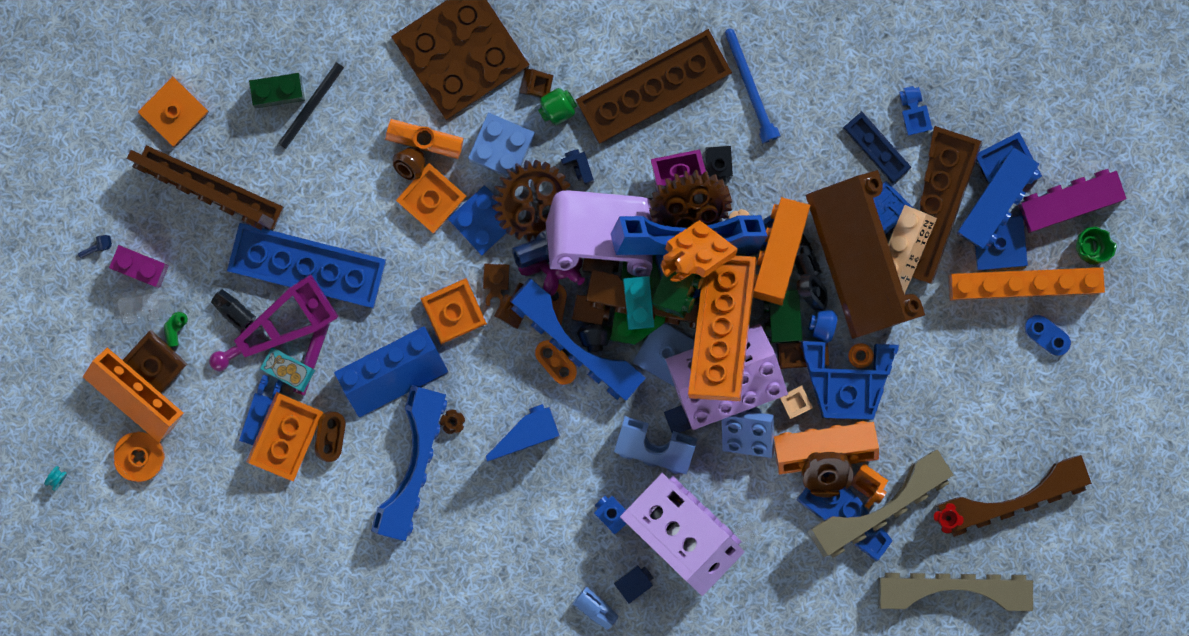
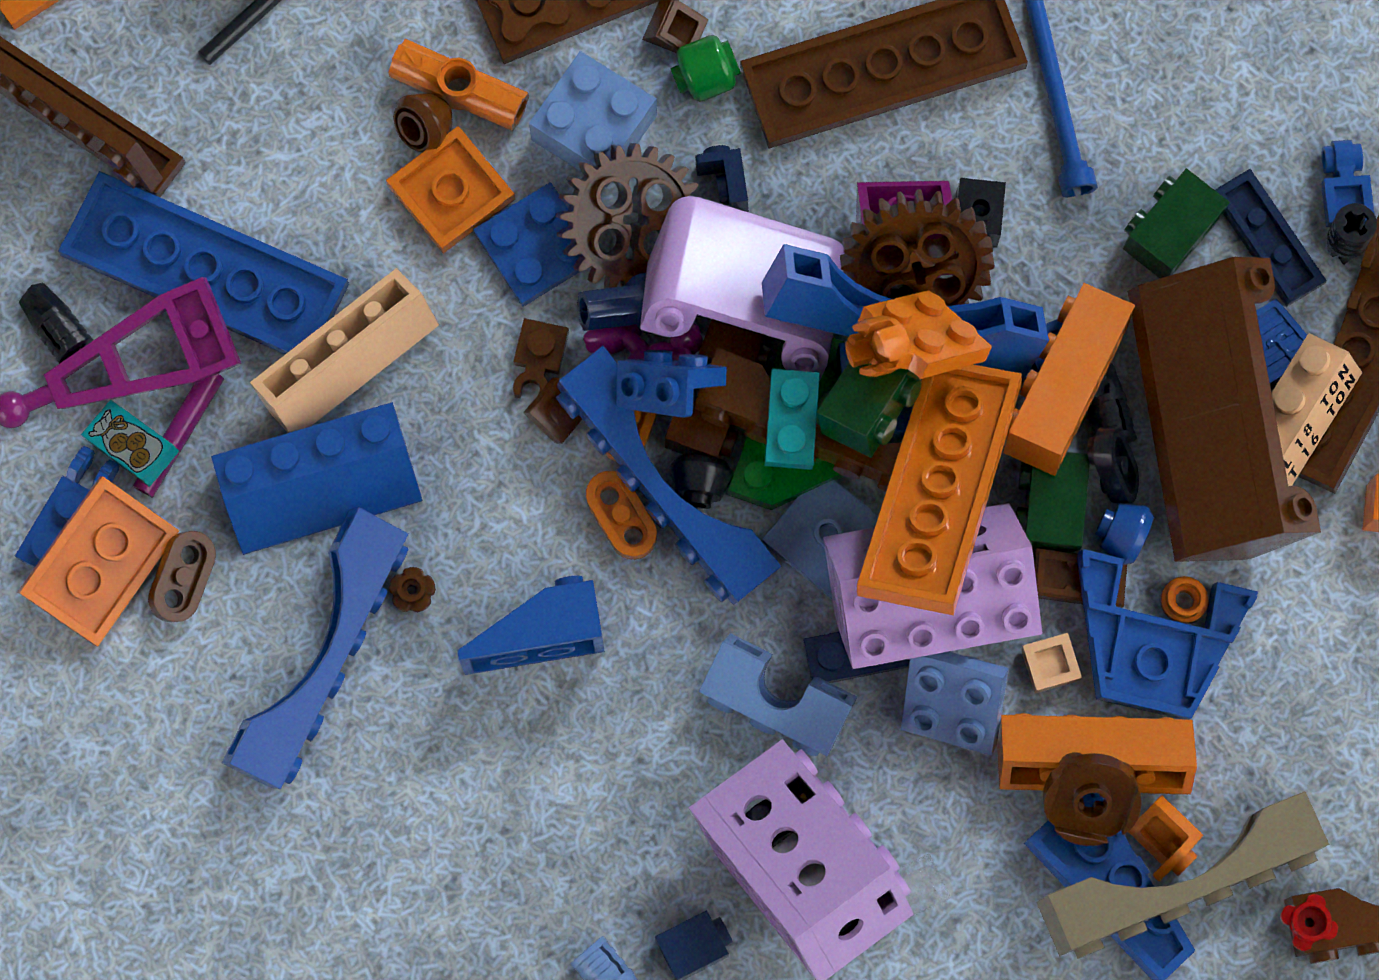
camera: 10 degrees right, 10 degrees down
(393, 301) = (345, 352): none -> light nougat brick
(453, 311) = (452, 392): orange plate -> none
(568, 295) = (665, 384): none -> blue bracket
(609, 513) = (669, 806): blue brick -> none
(825, 152) = (1175, 224): none -> dark green brick
(920, 142) = (1348, 234): none -> black hinge

